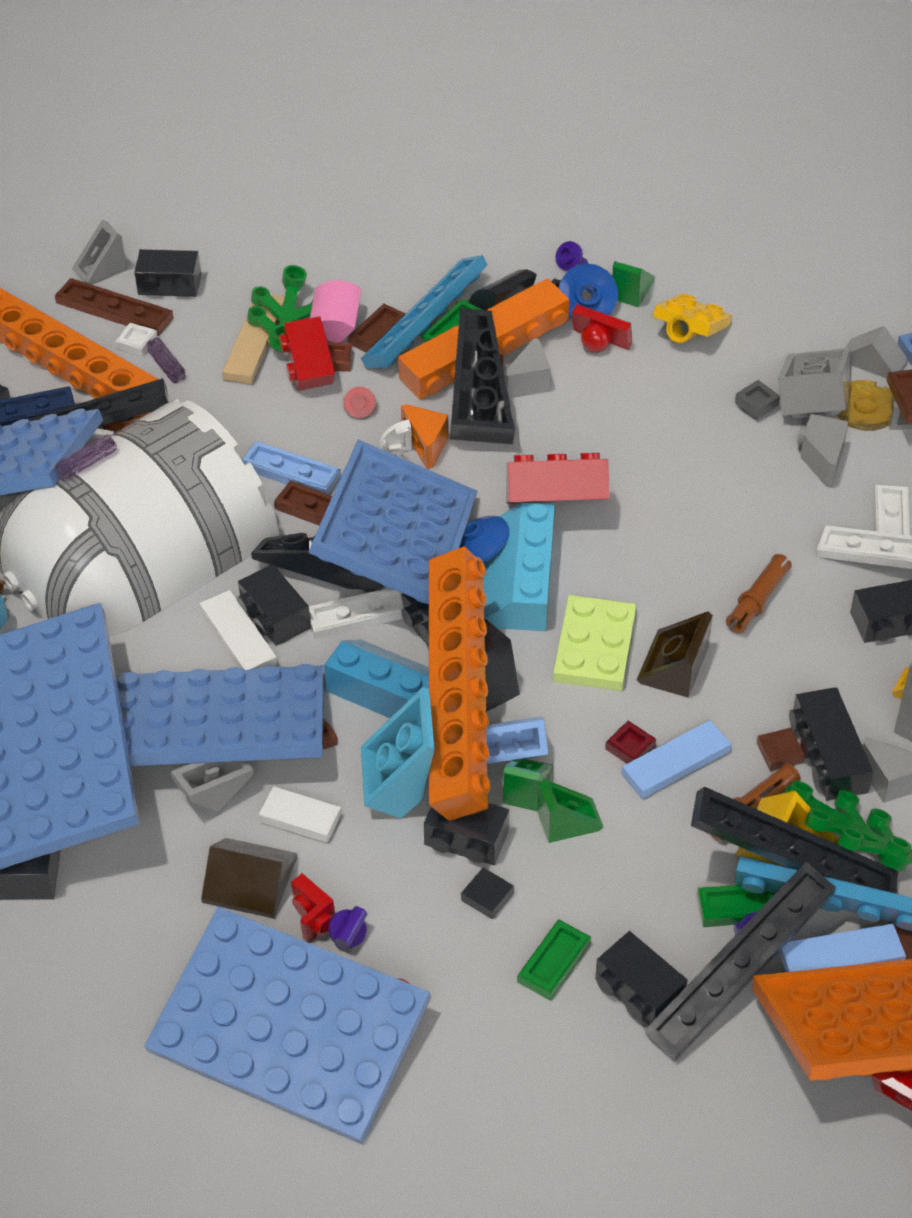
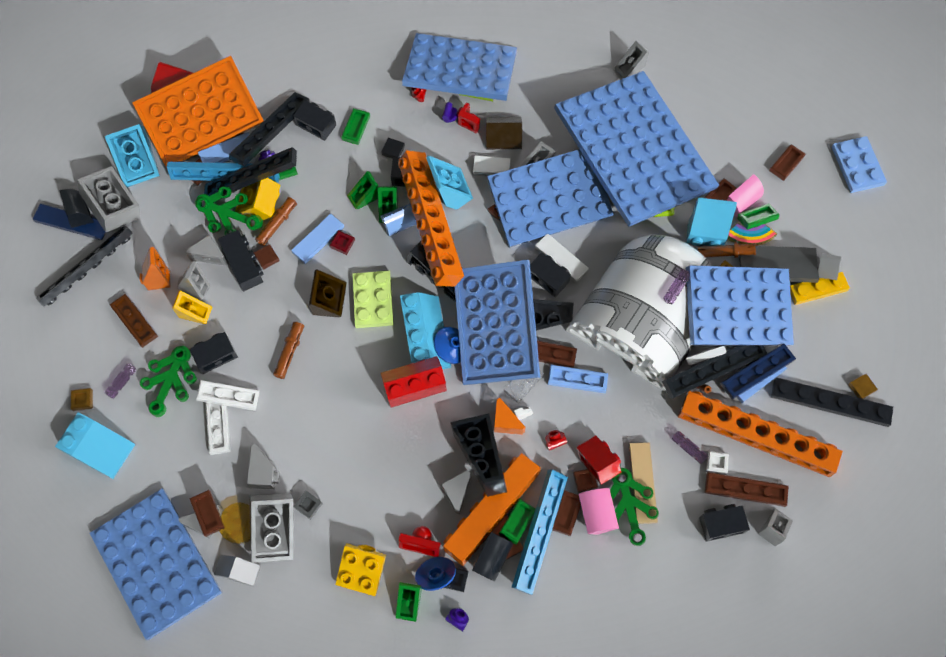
camera: 165 degrees right, 20 degrees up
(373, 676) = (476, 243): dark azure slope -> none

